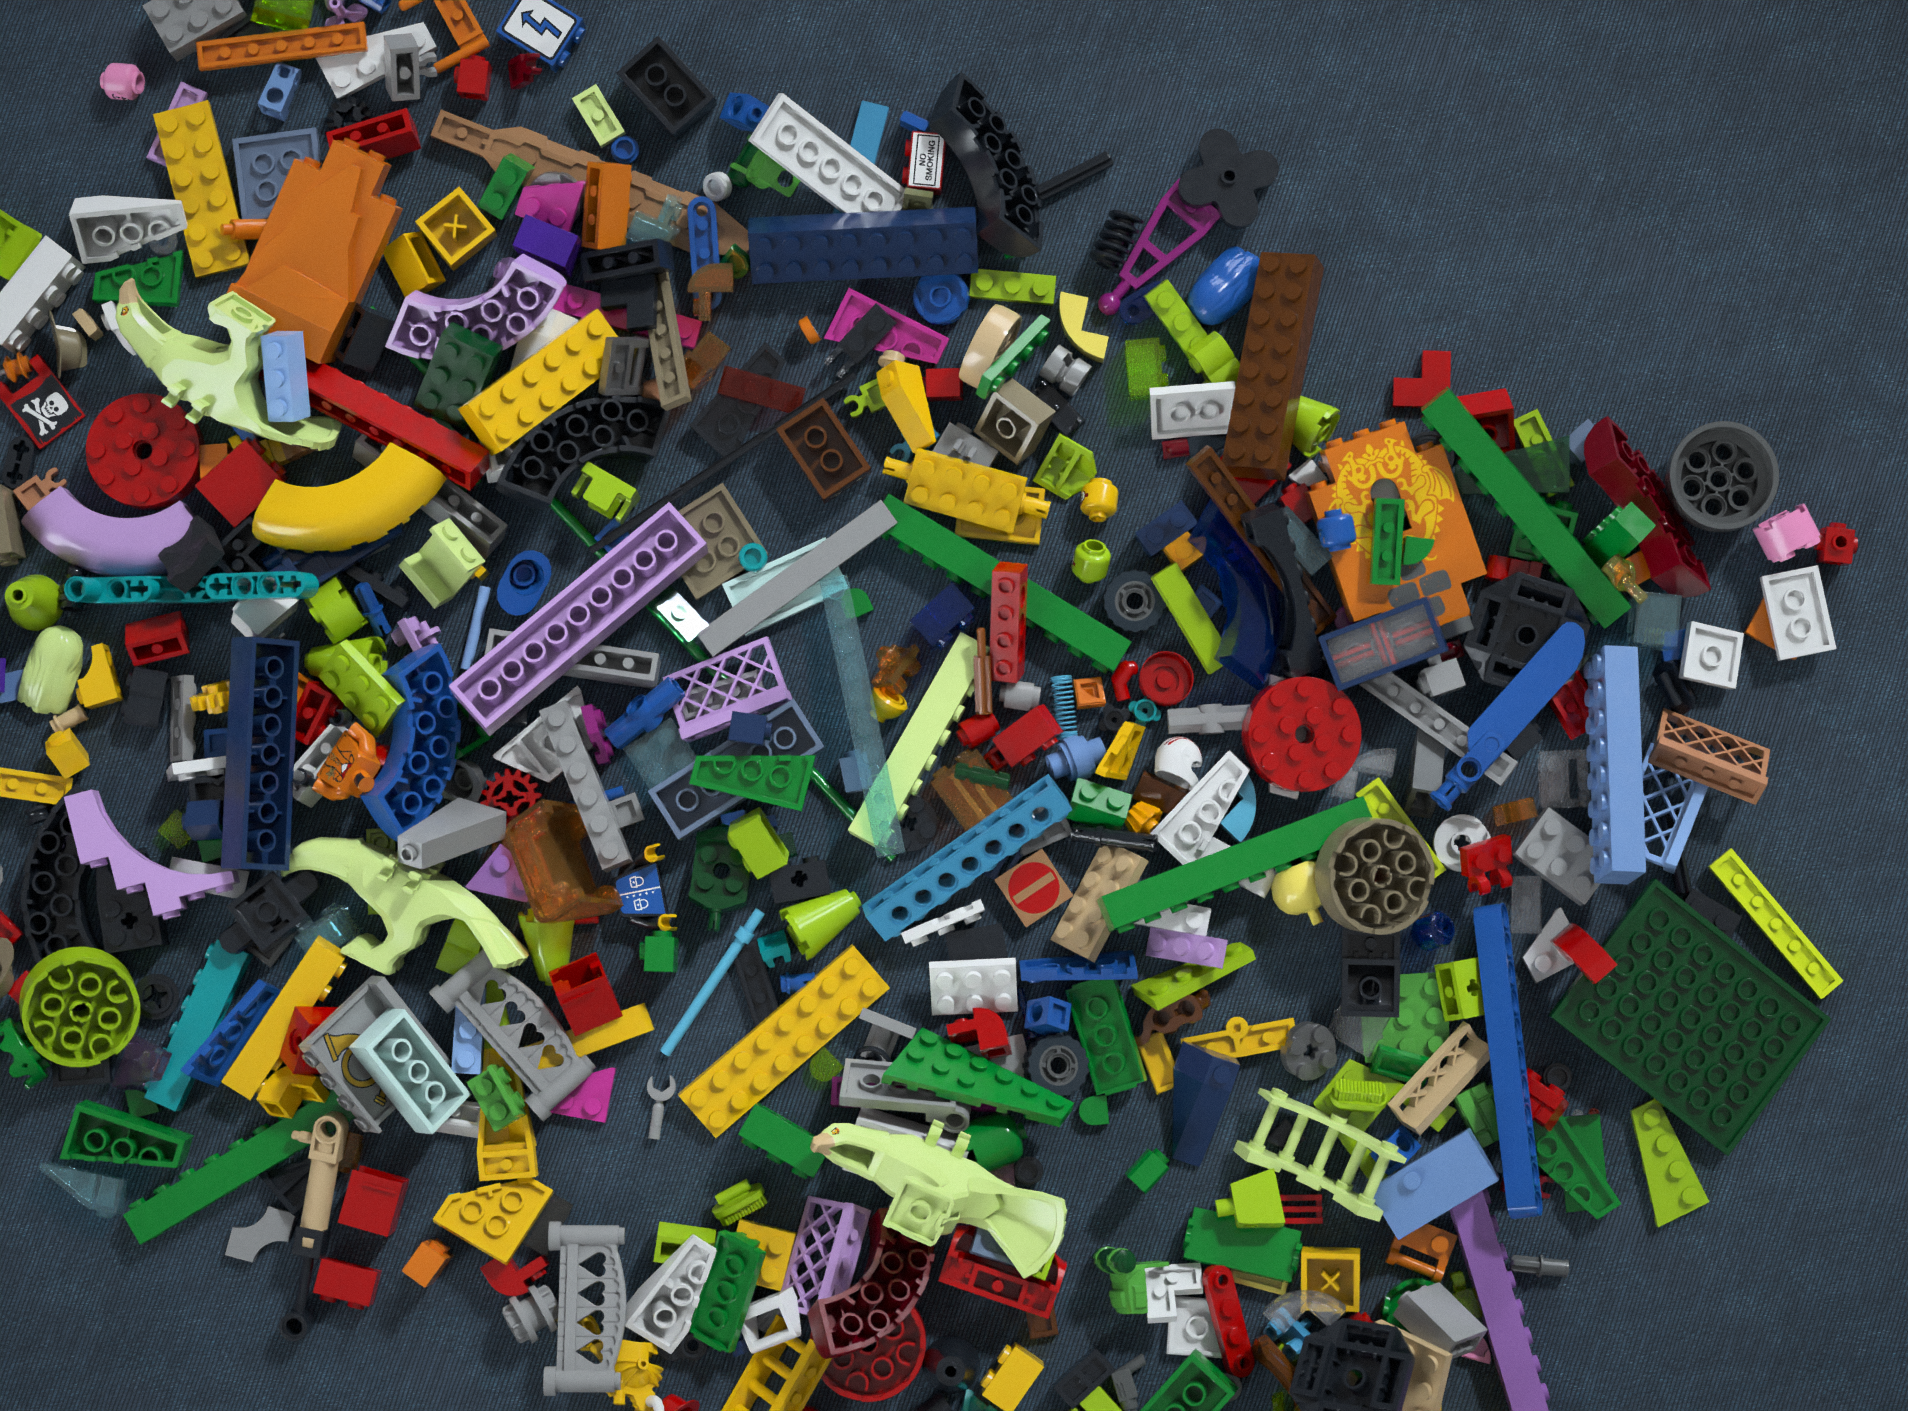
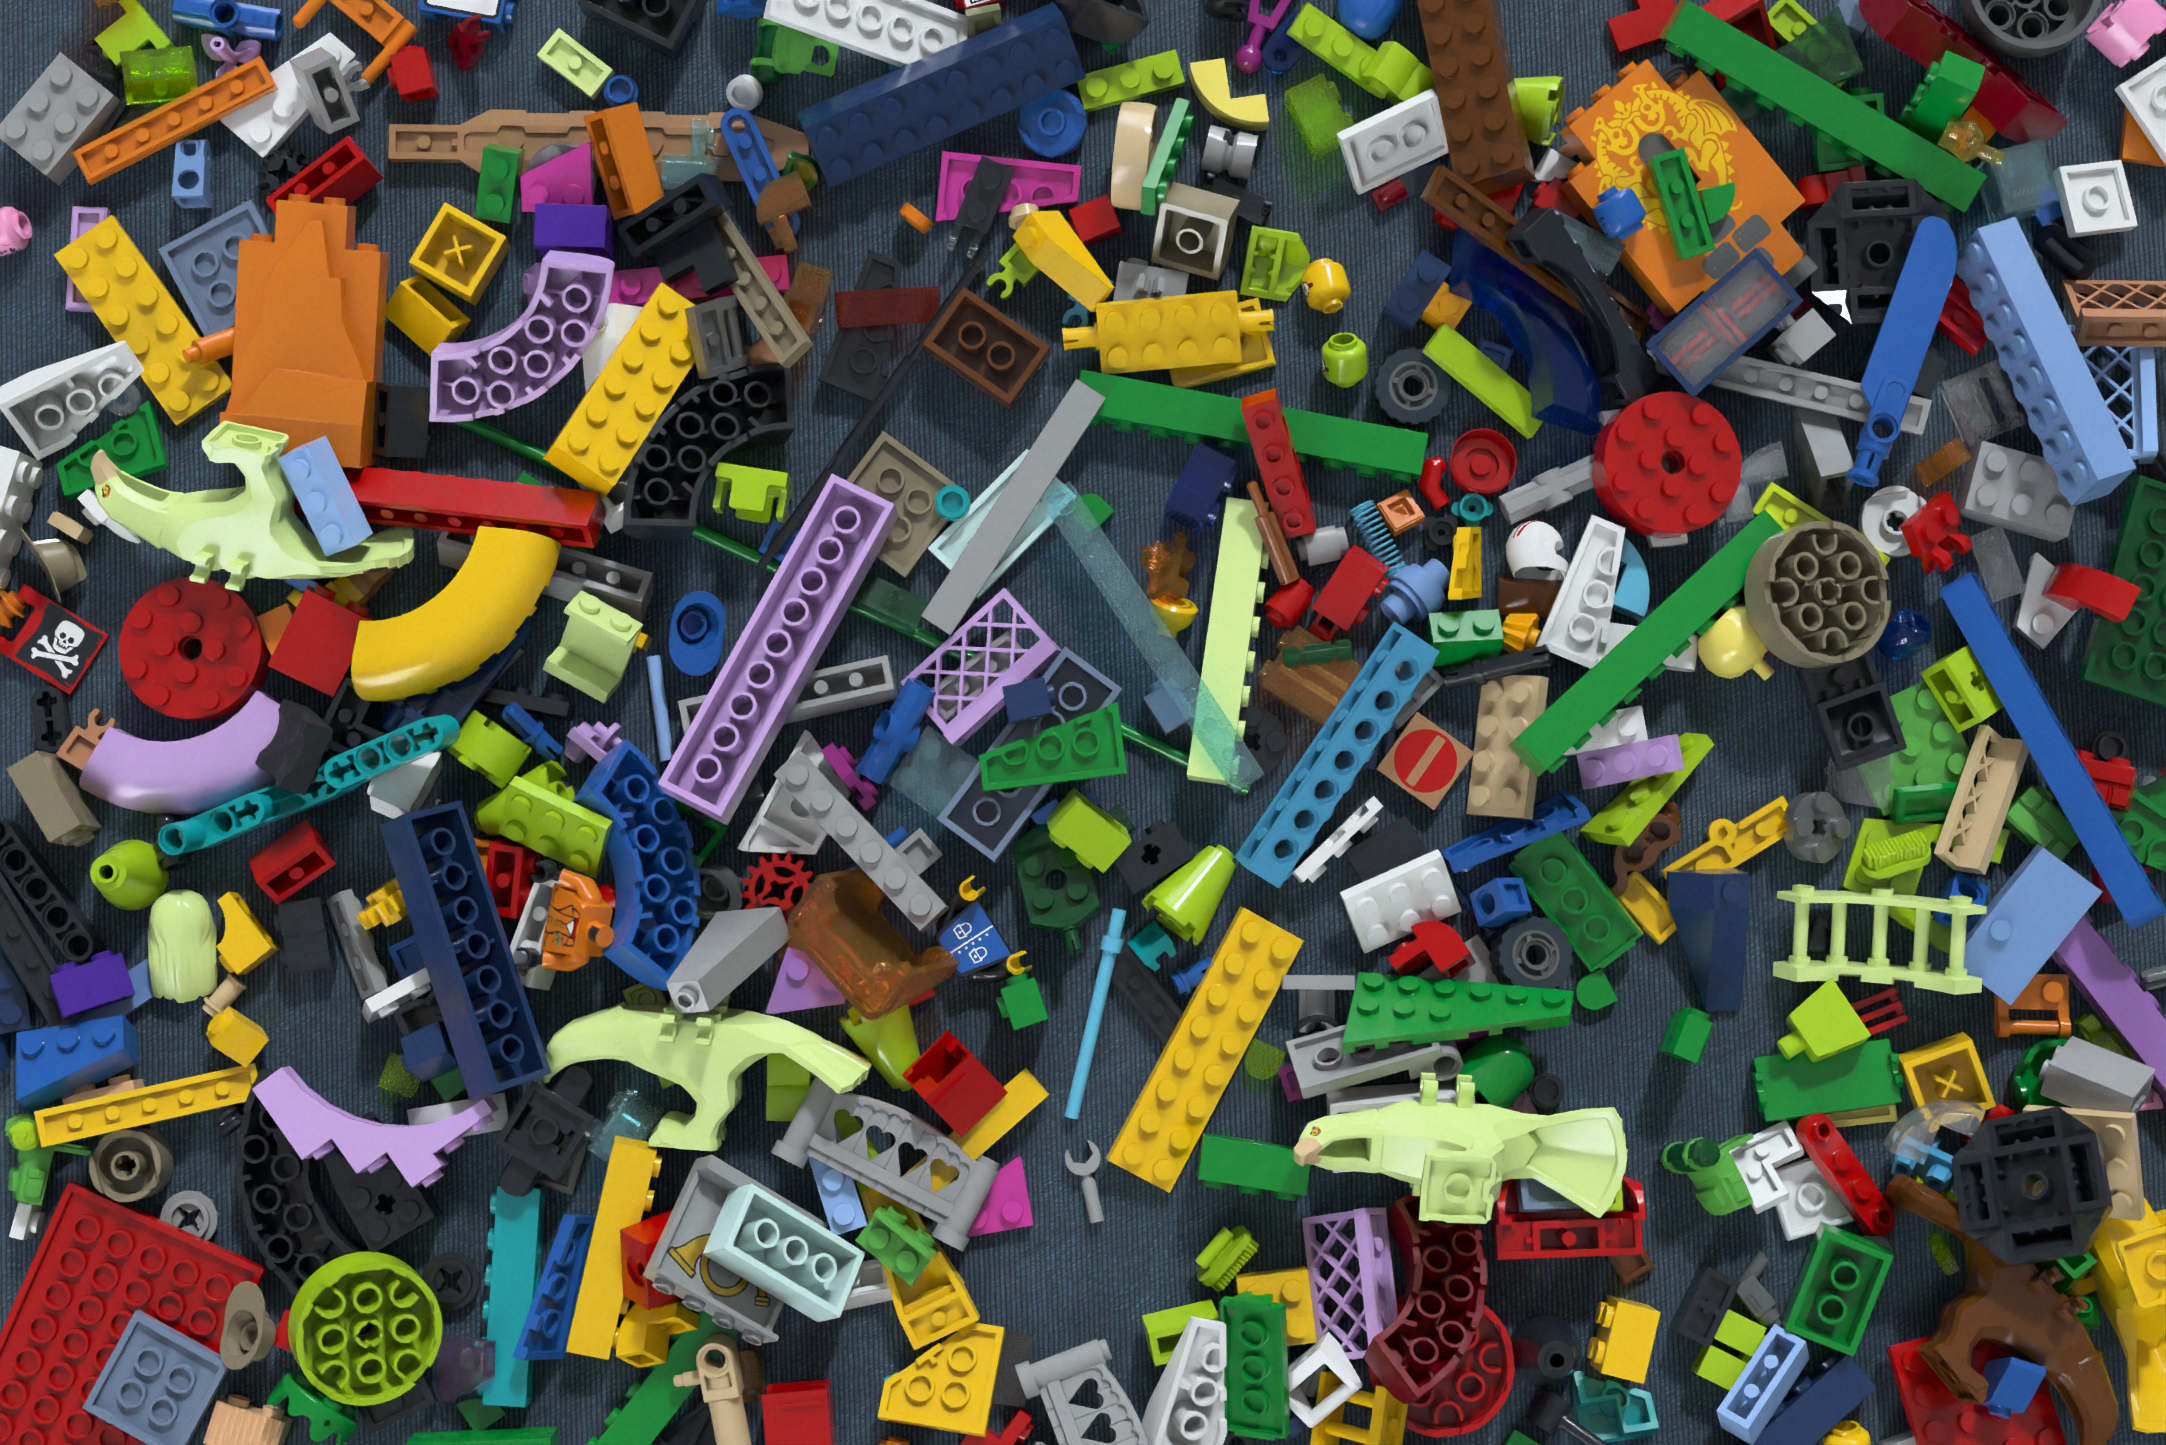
camera: 25 degrees left, 0 degrees up
(457, 373) = (526, 418): dark green brick -> none

